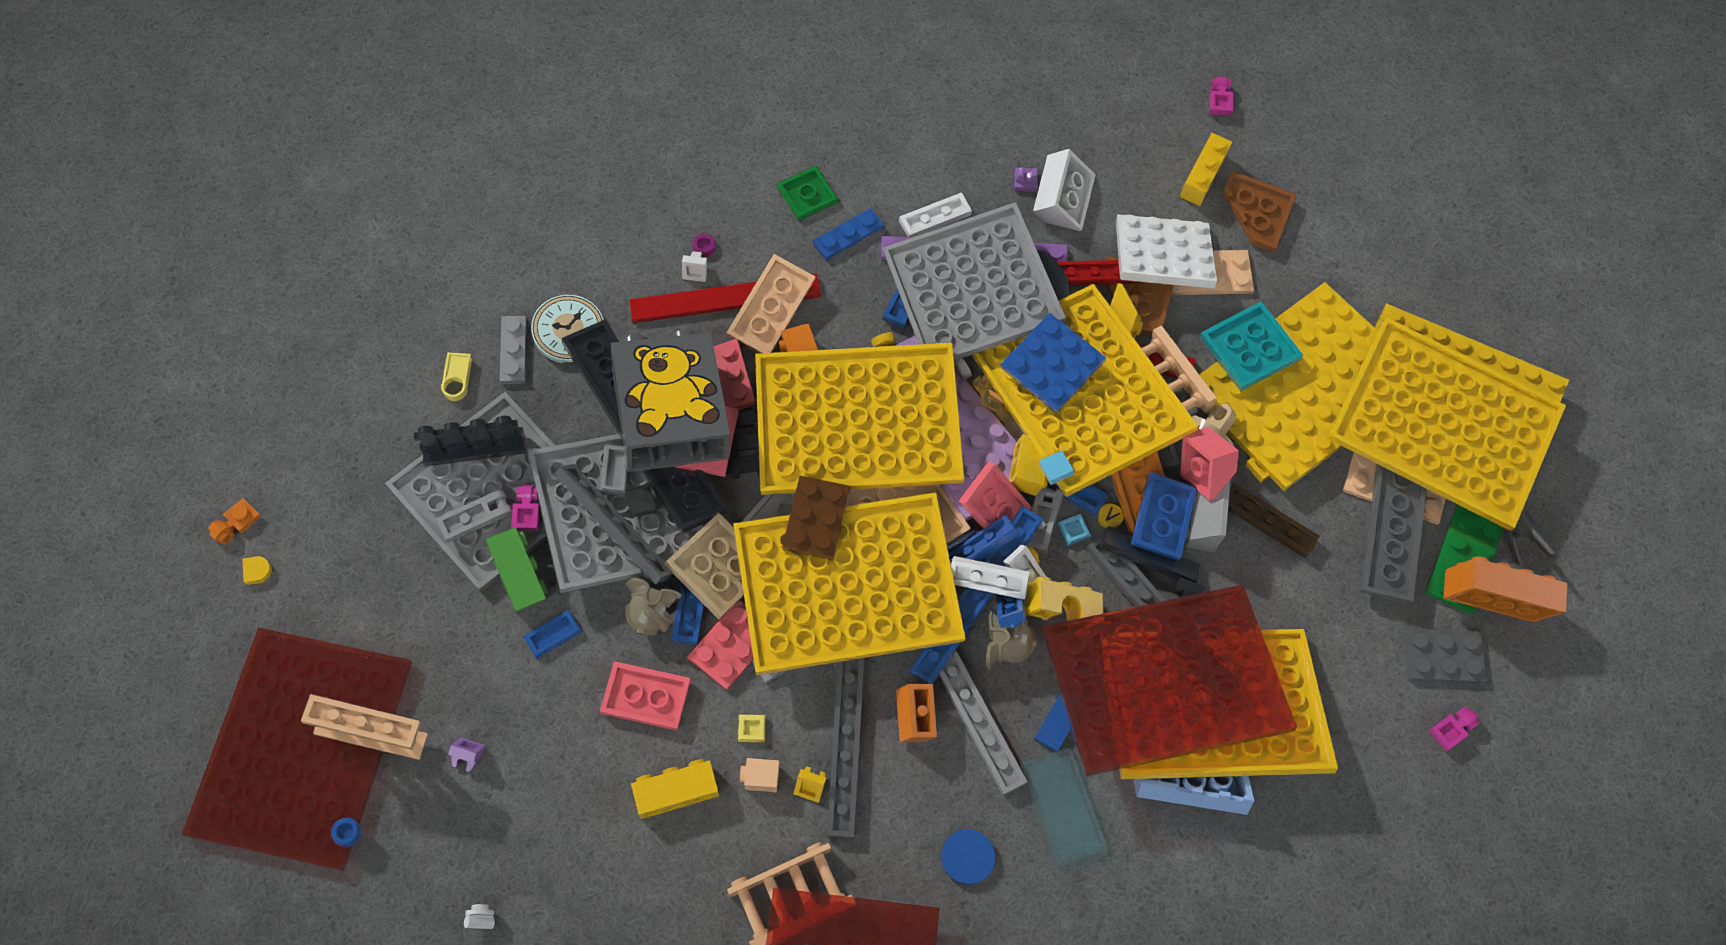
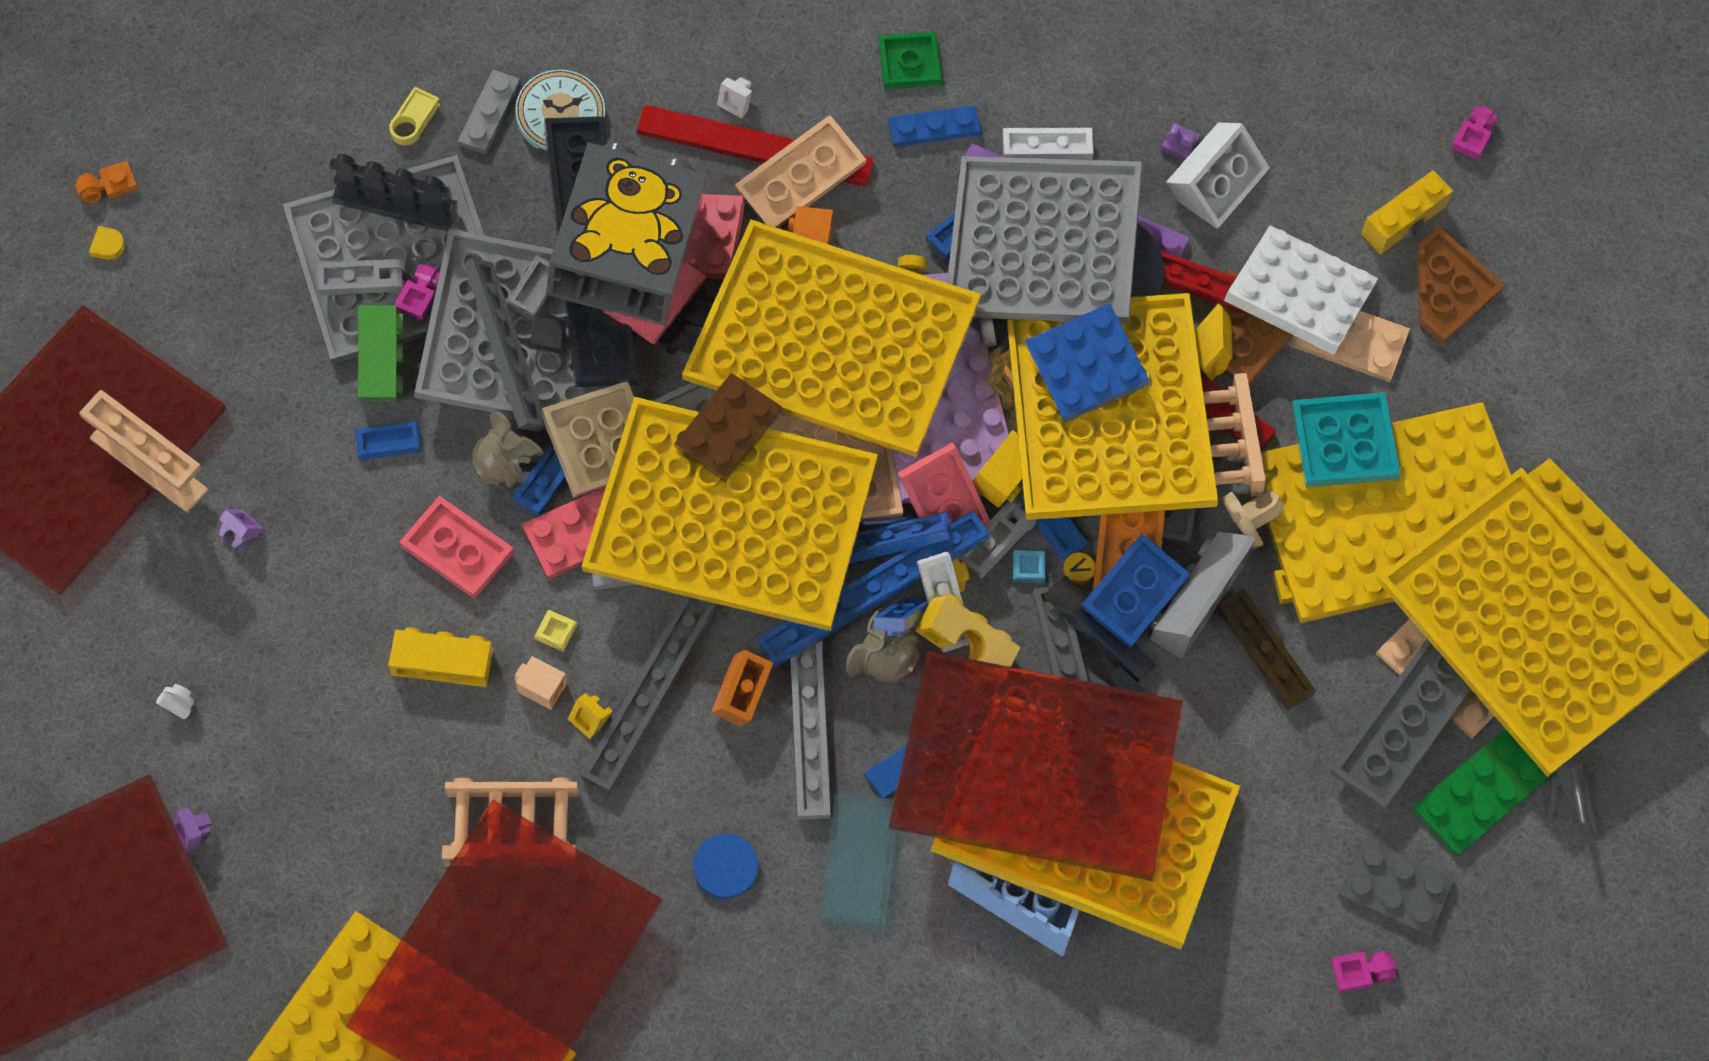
camera: 25 degrees right, 0 degrees up
(346, 832) = (79, 554): blue tile -> none
(705, 244) = (760, 75): magenta tile -> none
(990, 577) = (892, 572): white plate -> none
(1056, 467) = (1028, 481): medium azure tile -> none
(1208, 461) = (1214, 546): coral slope -> none
(1505, 589) = (1501, 838): orange brick -> none

